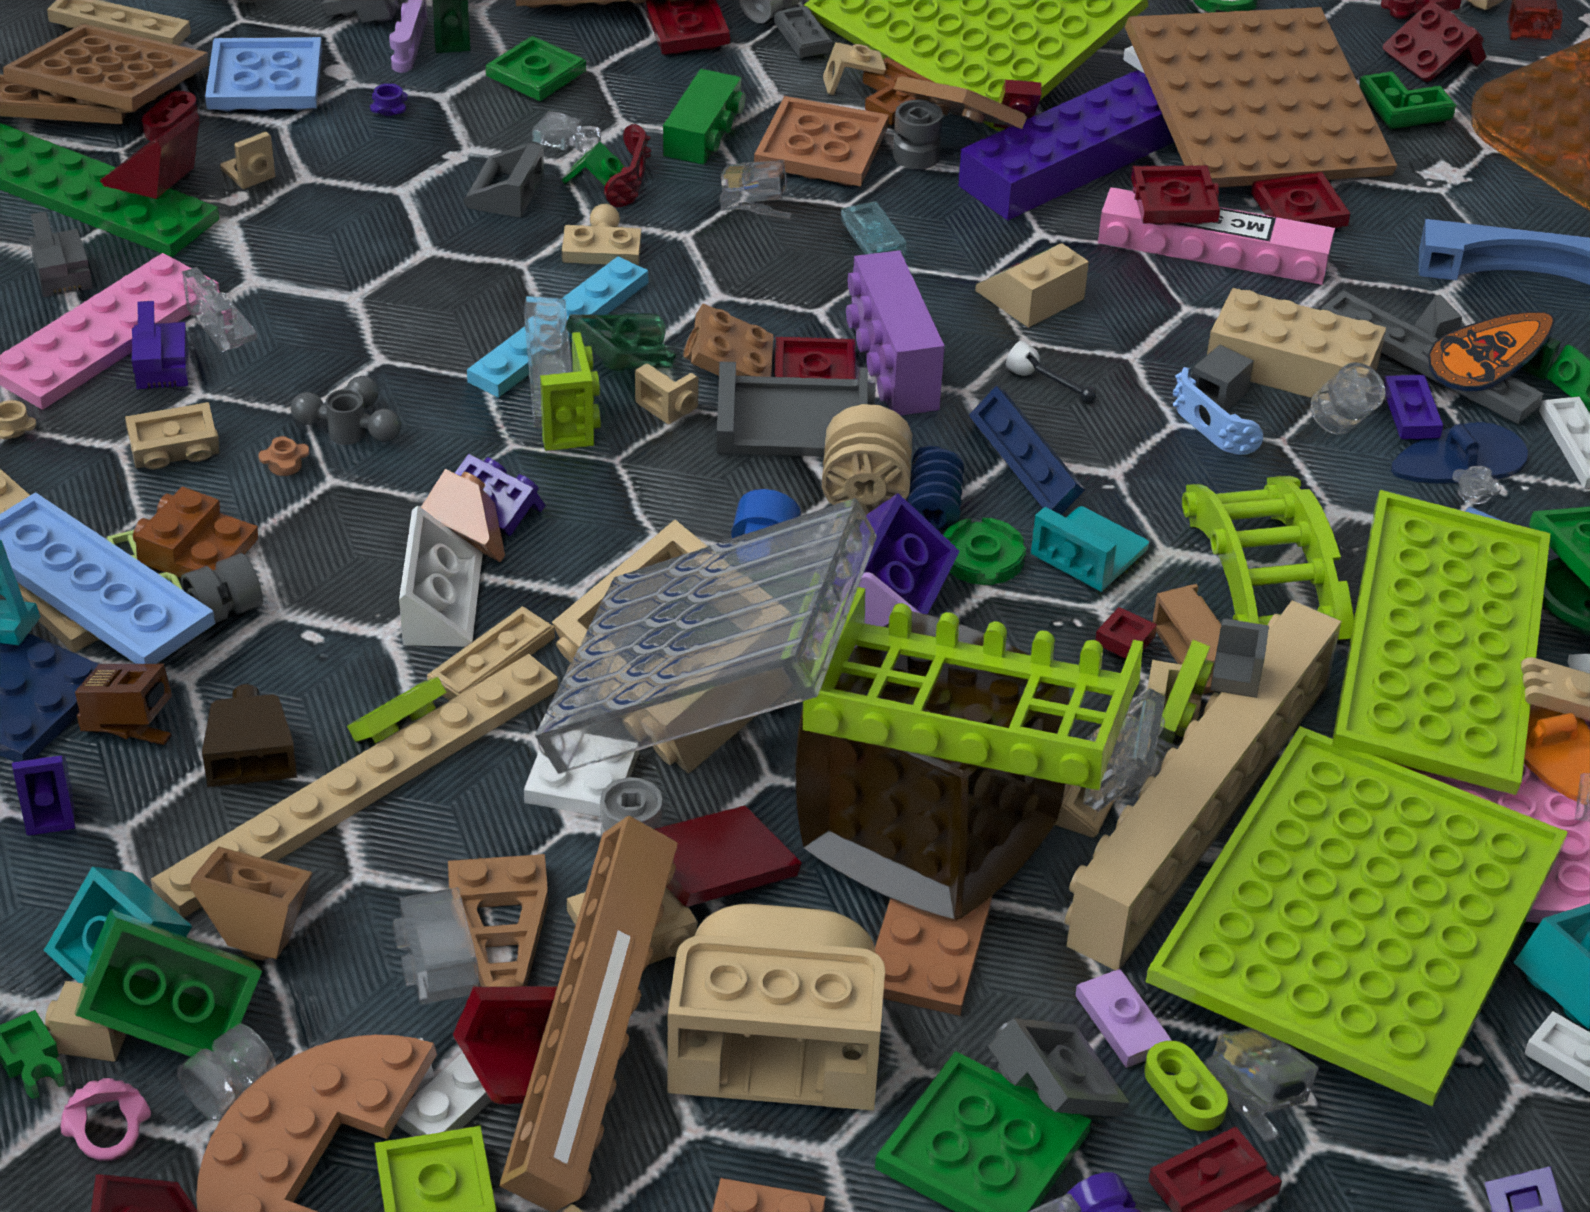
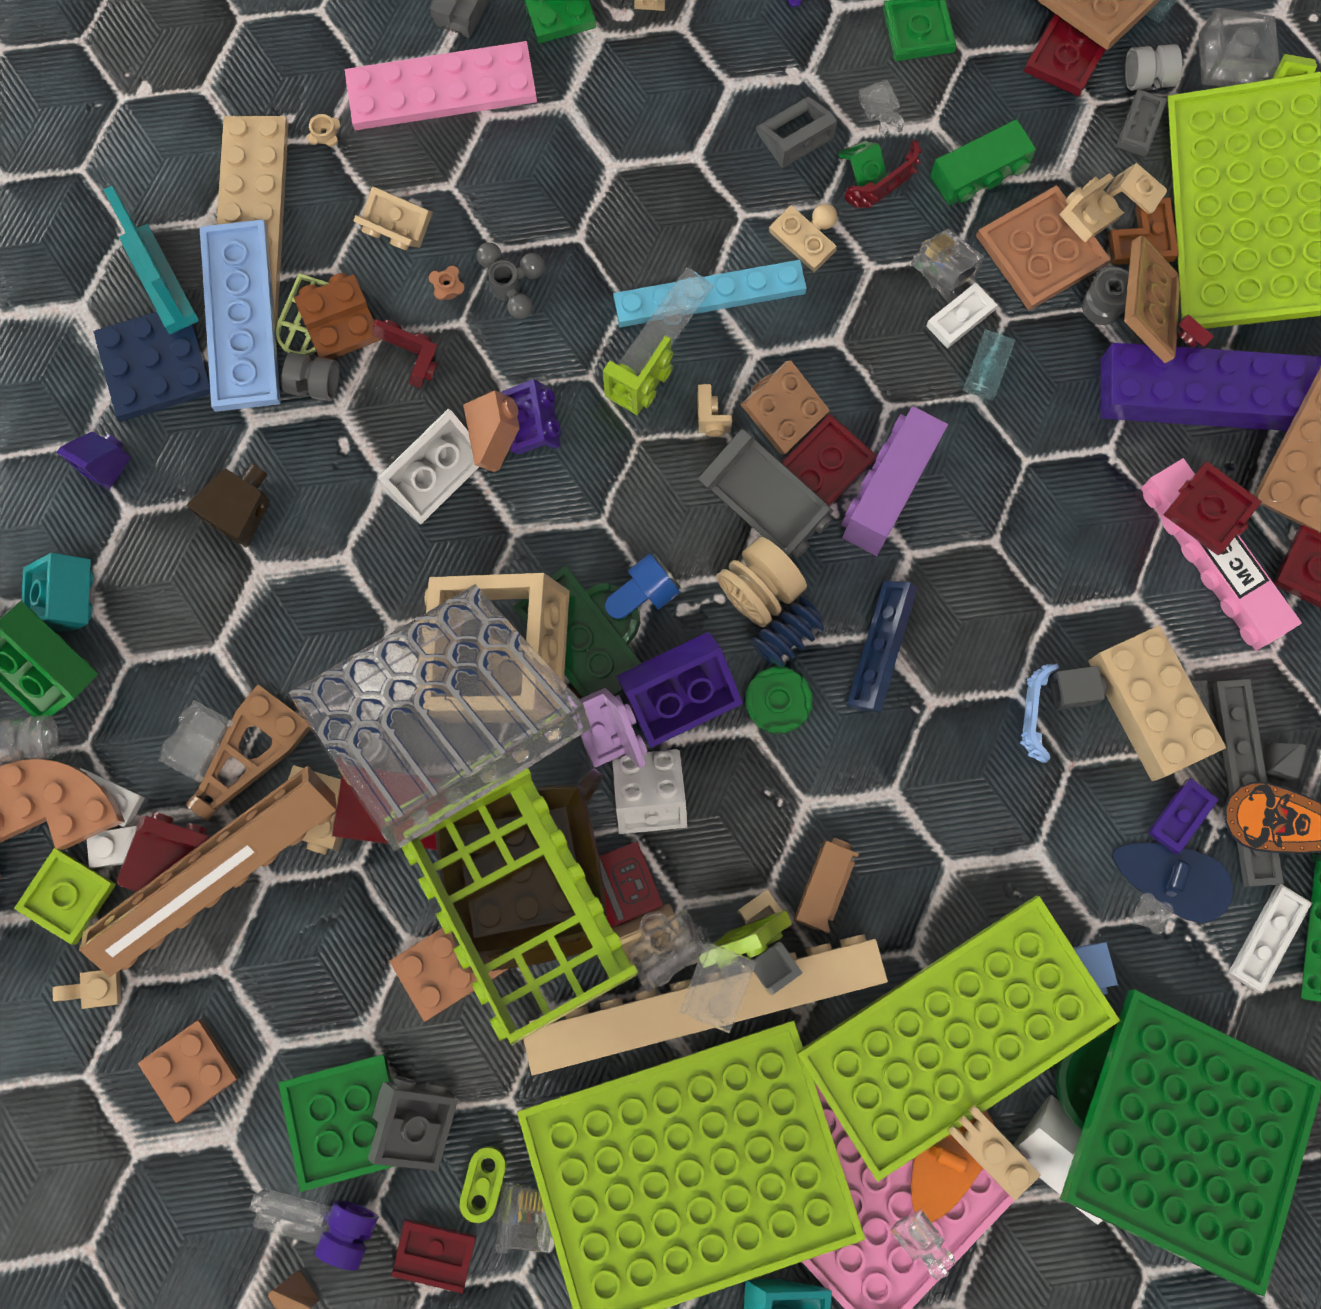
camera: 45 degrees right, 35 degrees up
(124, 700) = (192, 422): reddish brown piece -> none
(159, 350) = (447, 135): dark purple piece -> none
(215, 312) = (508, 127): clear bracket -> none
(251, 900) = (128, 628): medium nougat slope -> none
(305, 506) = (416, 343): none -> dark red bracket
(369, 775) = (266, 582): tan plate -> none
(413, 702) = (326, 549): lime plate -> none
(499, 647) = (420, 545): tan tile -> none
(624, 339) = (722, 346): clear green plate -> none
(777, 1008) = (298, 957): tan brick -> none
(808, 215) = (961, 315): none -> white plate
(838, 94) = (1091, 208): none -> tan bracket
(1026, 361) = (968, 564): hinge -> none
(1038, 285) = (1046, 499): tan slope -> none
(1085, 545) = (843, 755): teal bracket -> none
(1121, 629) = (789, 843): dark red plate -> none
(1121, 1016) = (501, 1107): lavender plate -> none
(1209, 707) = (718, 986): none -> clear plate
(1305, 527) = (964, 882): lime fence -> none
(1347, 398) = (1133, 783): clear wheel -> none

